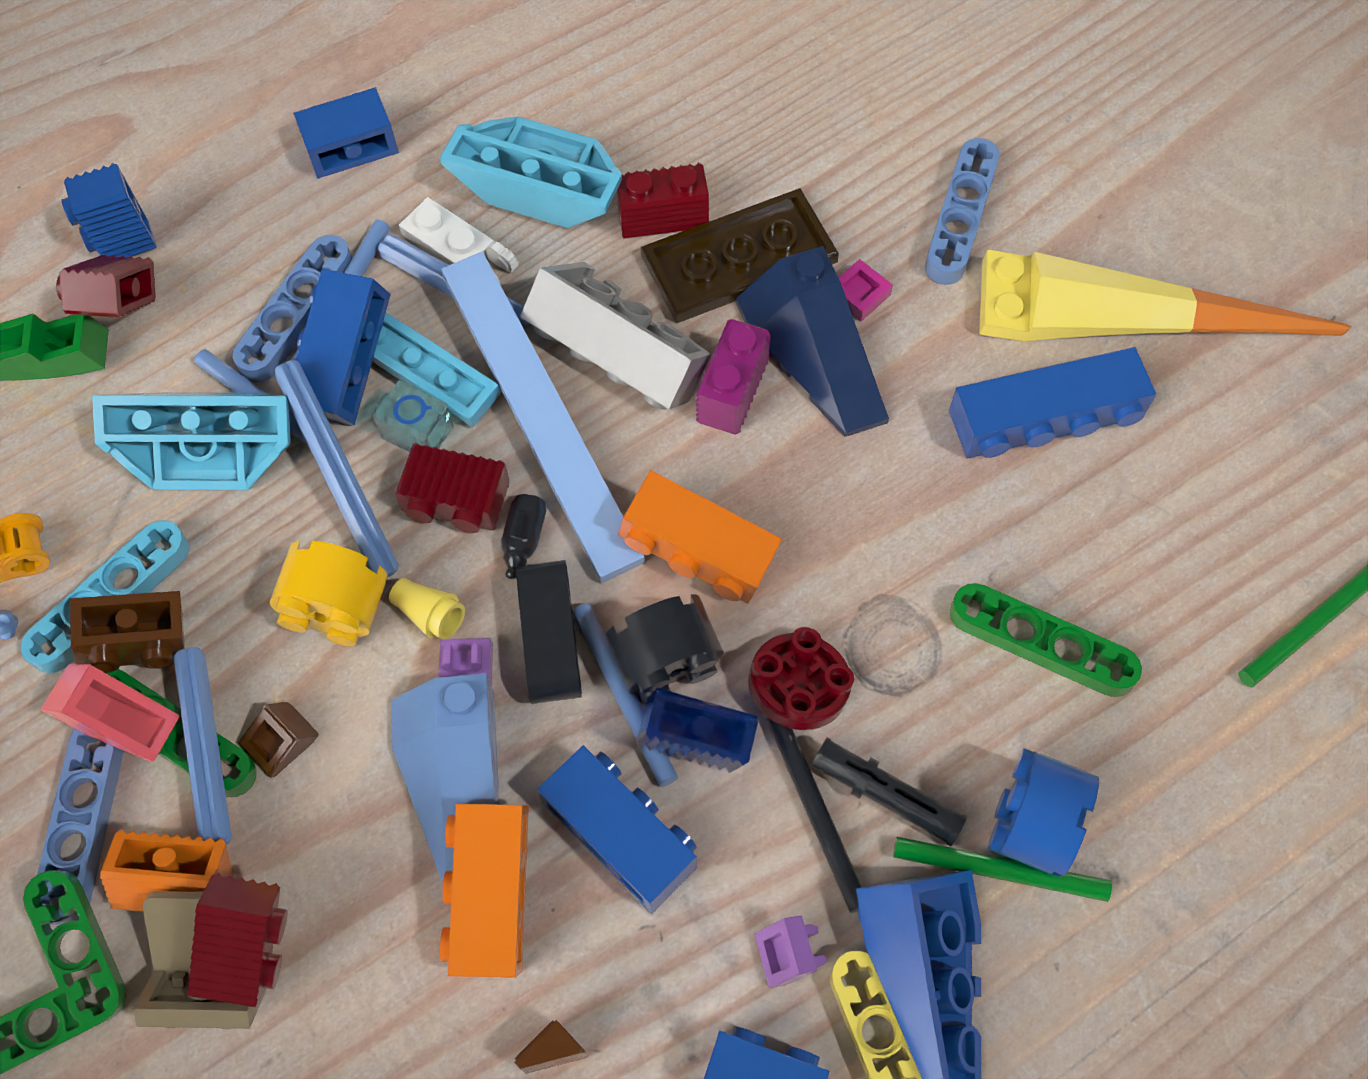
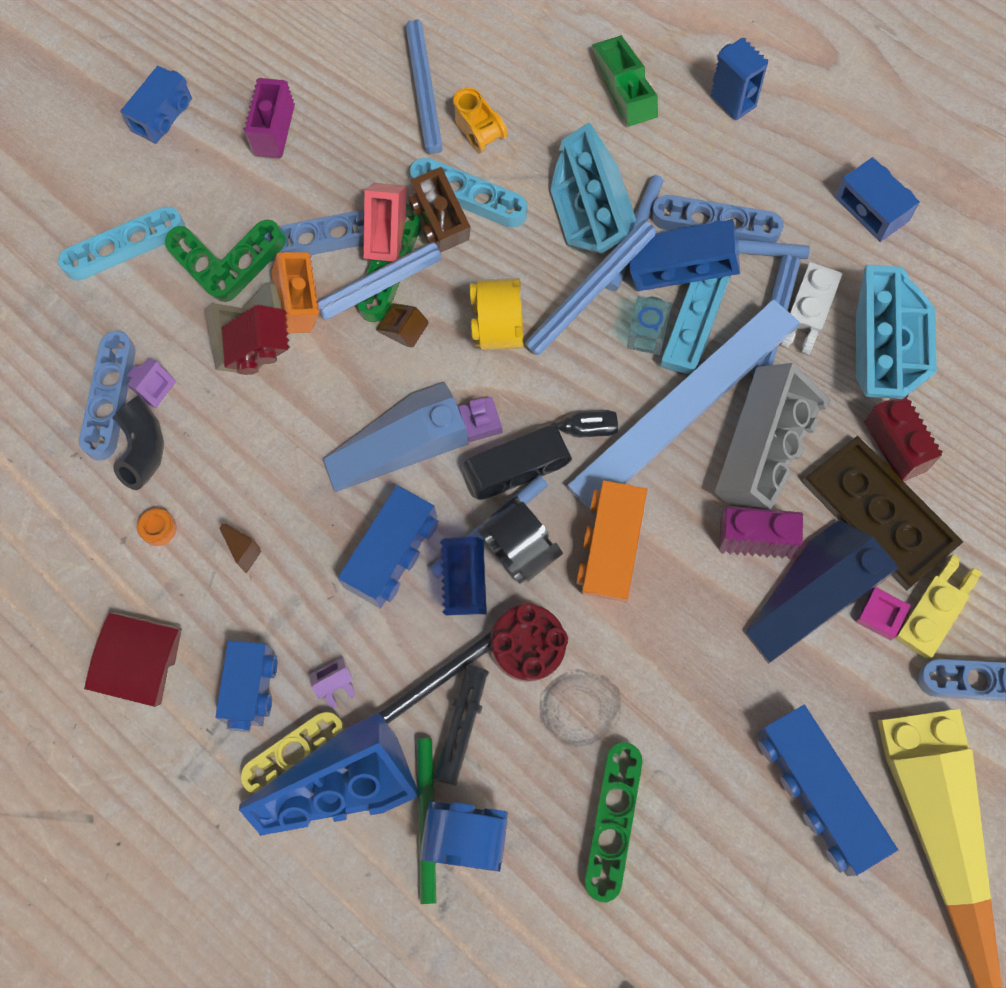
camera: 80 degrees right, 5 degrees up
(106, 286) = (682, 100): dark red brick -> none
(429, 608) = (512, 382): light yellow cone -> none
(452, 488) = (605, 367): dark red brick -> none
(485, 890) = (326, 476): orange brick -> none
(867, 235) = (936, 610): none -> light yellow hinge

